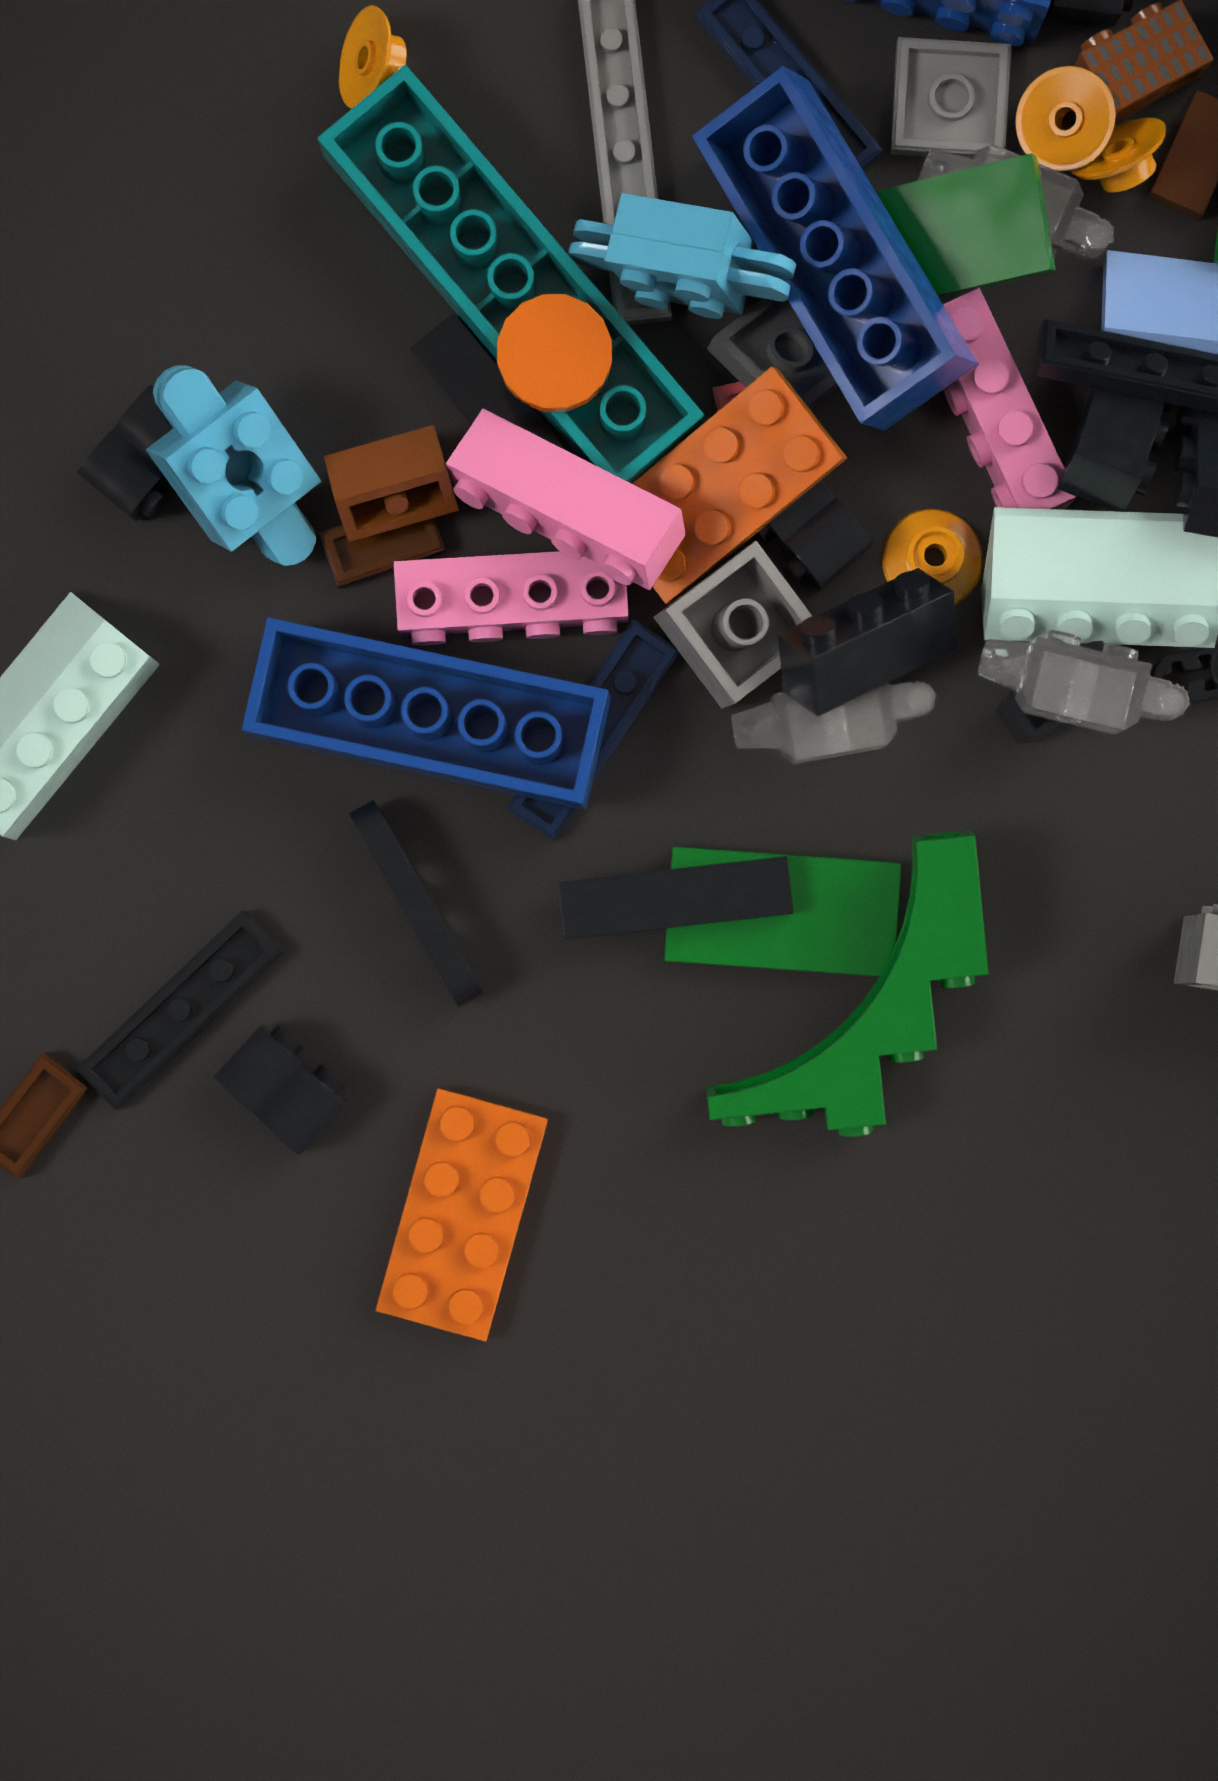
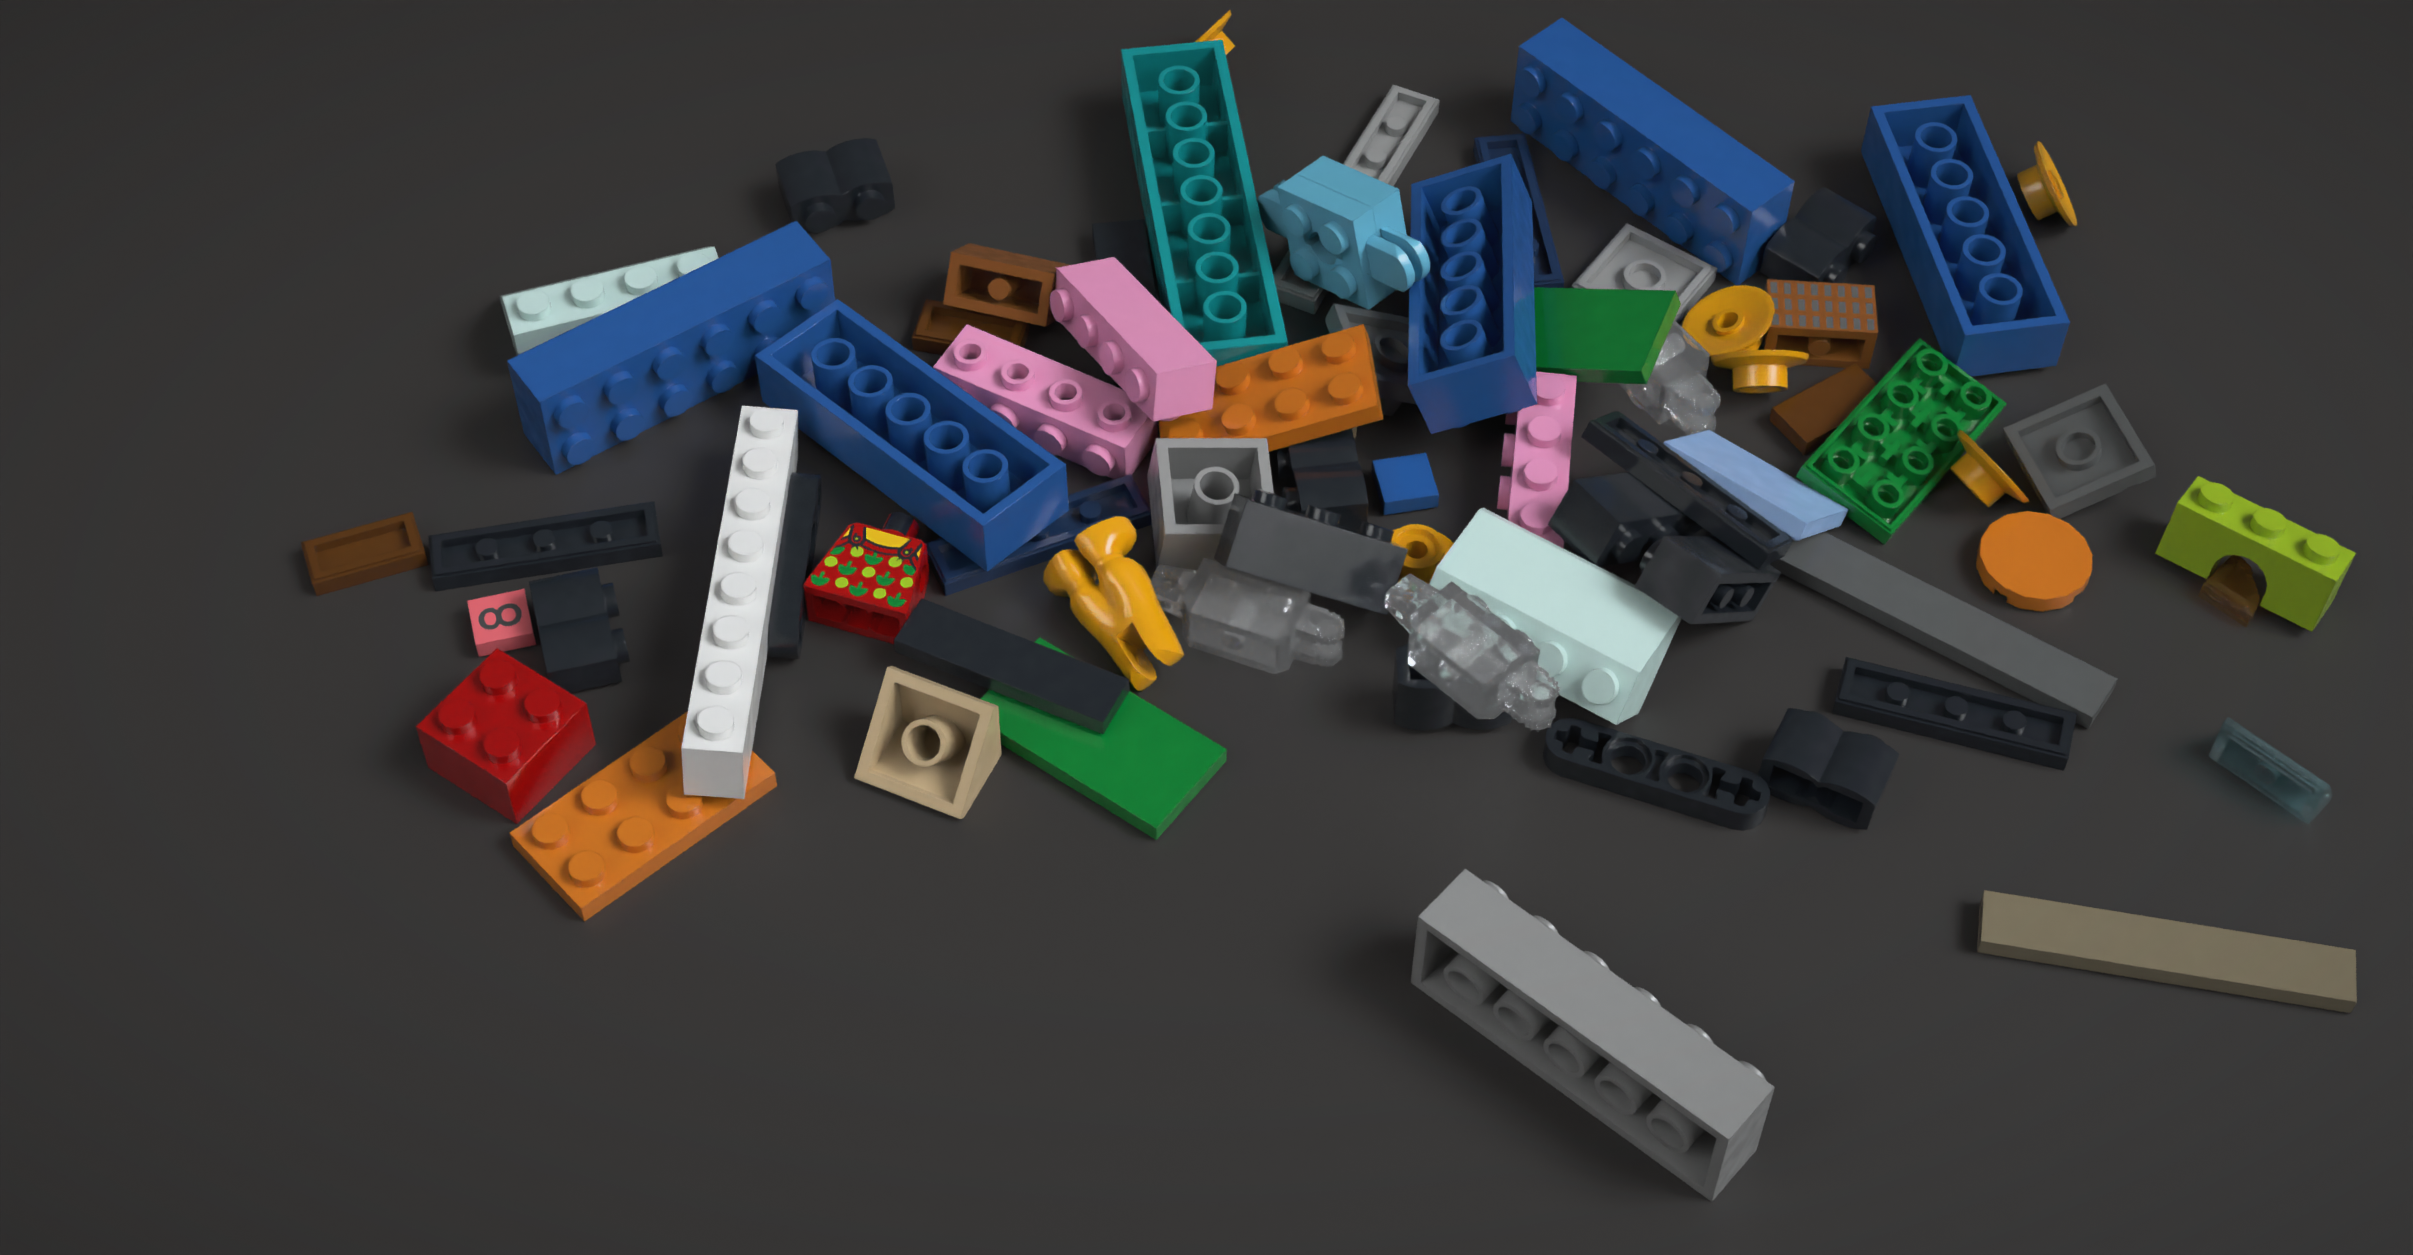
camera: 30 degrees right, 35 degrees down
(154, 750) = (667, 347): none -> blue brick
(205, 1112) = (501, 622): none -> coral tile
(234, 465) = (894, 205): medium azure brick -> none
(306, 1229) = (506, 735): none -> red brick
(408, 979) = (738, 606): none -> white brick
(495, 876) = (870, 579): none -> red torso
(554, 352) = (1196, 242): orange tile -> none
(660, 1023) = (930, 743): none -> tan slope
(723, 779) = (1123, 607): none -> light orange piece
(842, 1073) = (1134, 843): green arch -> none
(875, 477) = (1405, 483): none -> blue tile

